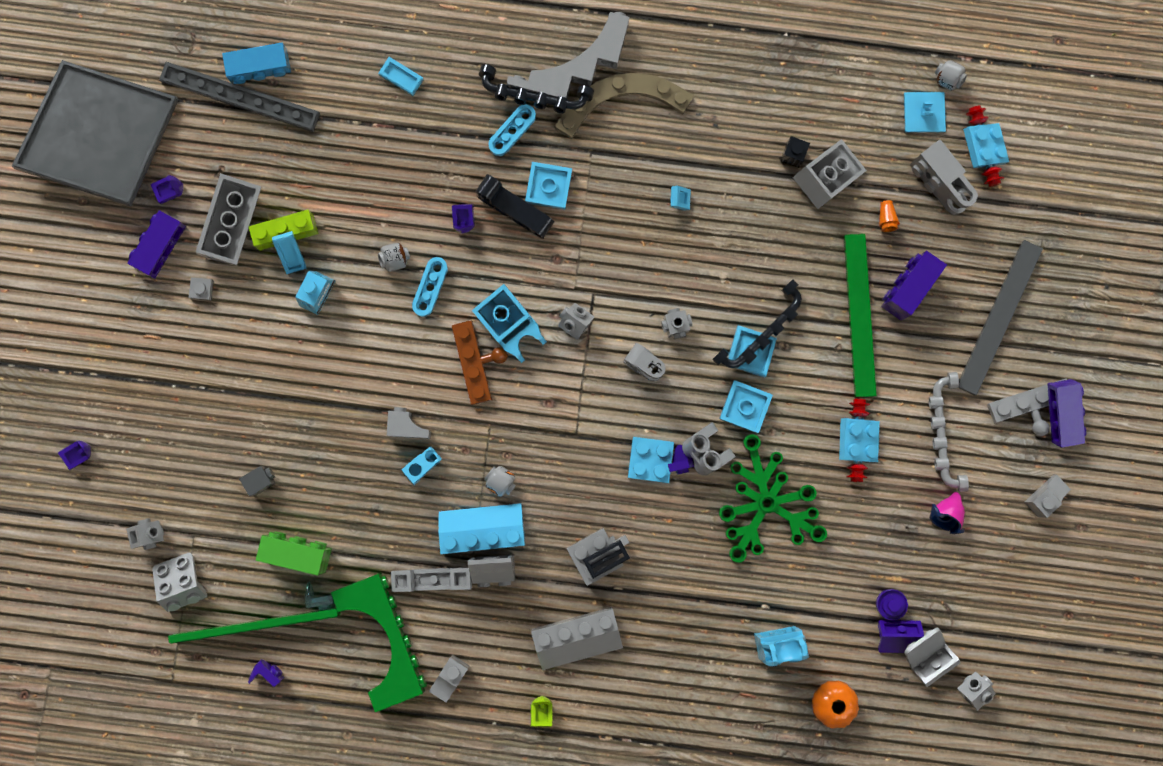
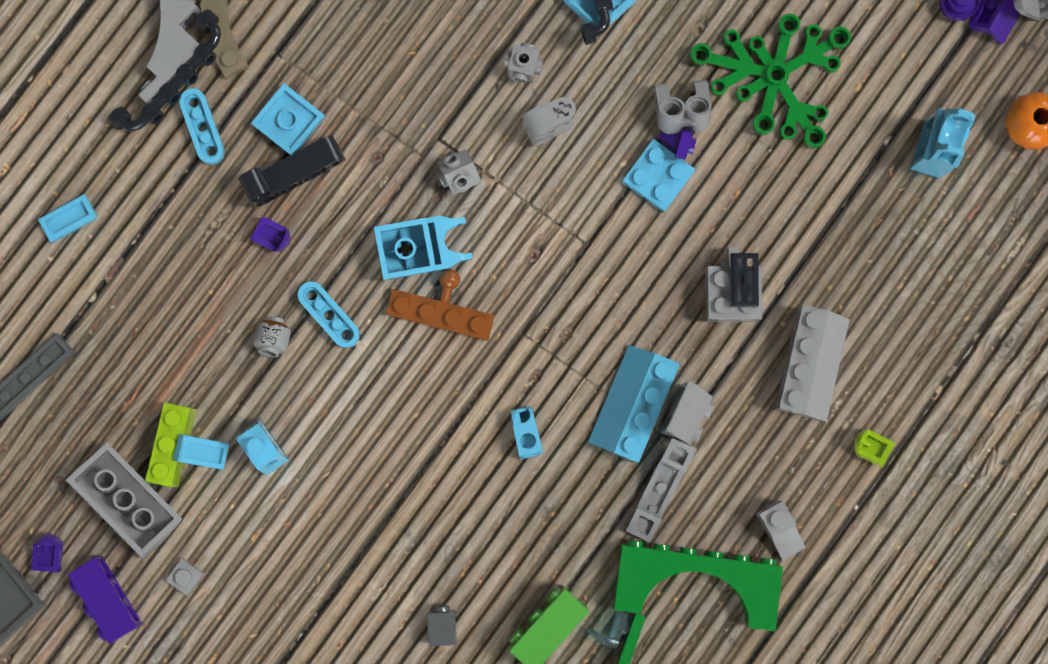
camera: 55 degrees left, 0 degrees up
(401, 425) = (470, 429): light grey arch -> none
(500, 481) = (592, 354): light grey head -> none
(746, 406) = (657, 39): medium azure plate -> none

